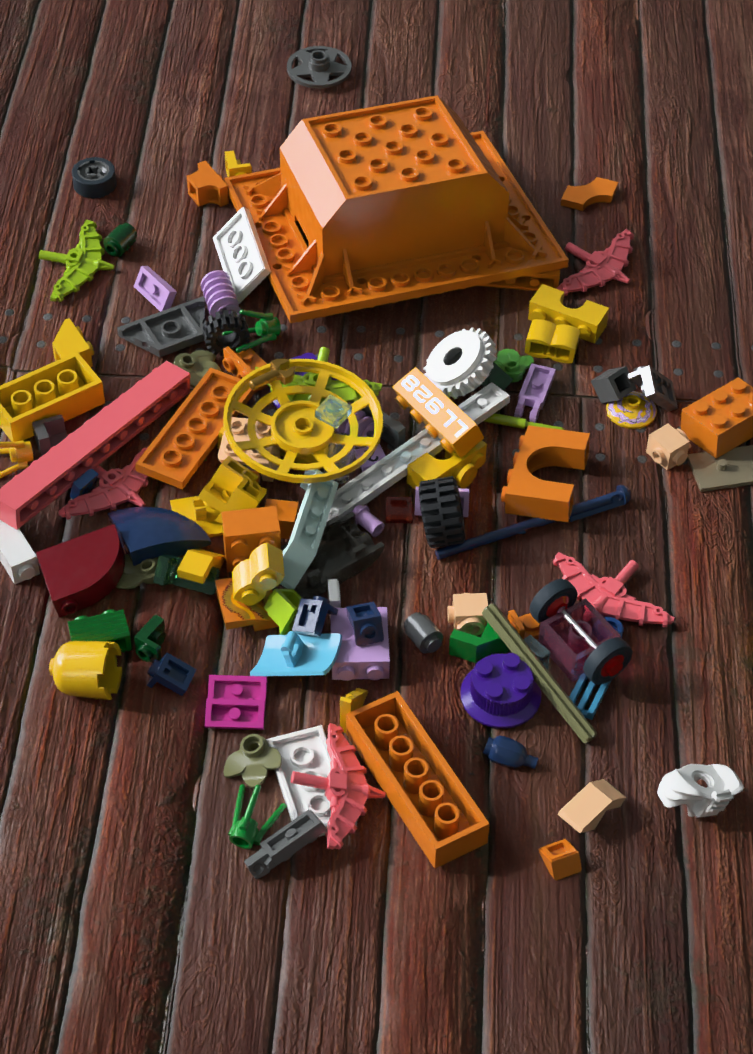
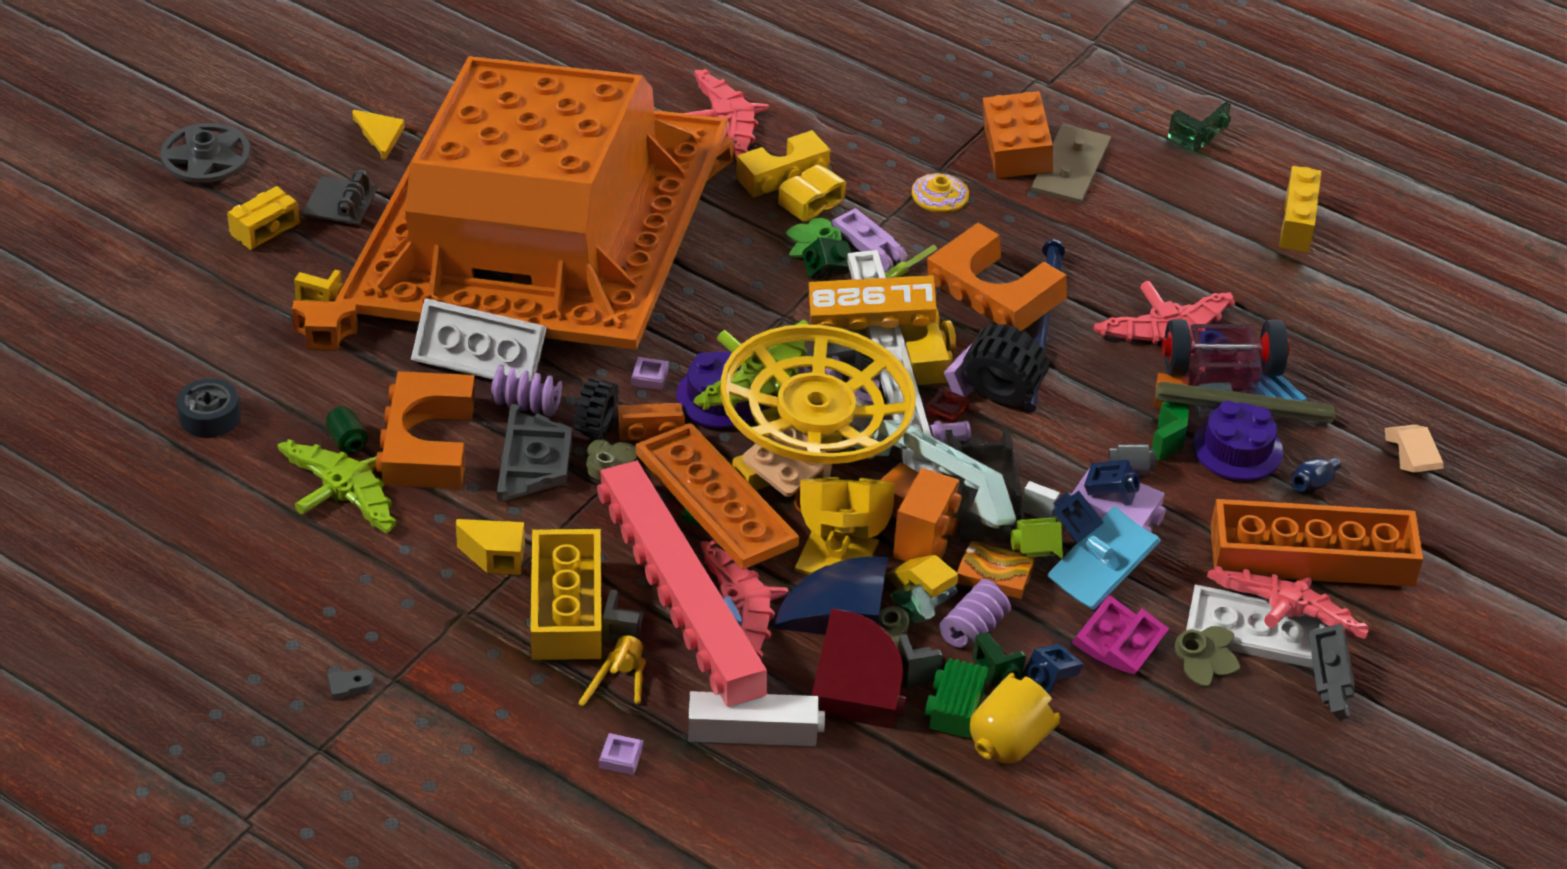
camera: 60 degrees left, 5 degrees down
(118, 597) = (918, 664): none -> dark grey panel
(155, 288) = (474, 433): lavender hinge -> none
(168, 254) = (417, 399): none -> orange arch
(186, 610) = (975, 614): none -> lavender piece
(245, 831) = (1292, 693): green plant -> none
(258, 574) = (998, 527): yellow brick -> none
(267, 327) = (610, 372): green plant -> none
(277, 115) = (263, 217): none -> yellow brick
(277, 373) = (747, 378): pearl gold bar -> none
(296, 346) = (649, 373): none -> lavender tile
(333, 411) = (833, 362): clear light blue plate -> none
(350, 703) = (1194, 549): yellow tile -> none
(461, 362) = (787, 245): white gear -> none
(467, 612) = (1131, 417): light nougat brick -> none
(561, 859) = (1453, 499): orange slope -> none
(582, 196) = (618, 58): orange tile -> none
(613, 384) = (914, 181): dark grey brick -> none
(655, 386) = (951, 153): flat silver bracket -> none
(668, 446) = (1019, 190): light nougat brick -> none
(681, 788) = (1450, 365): white piece -> none

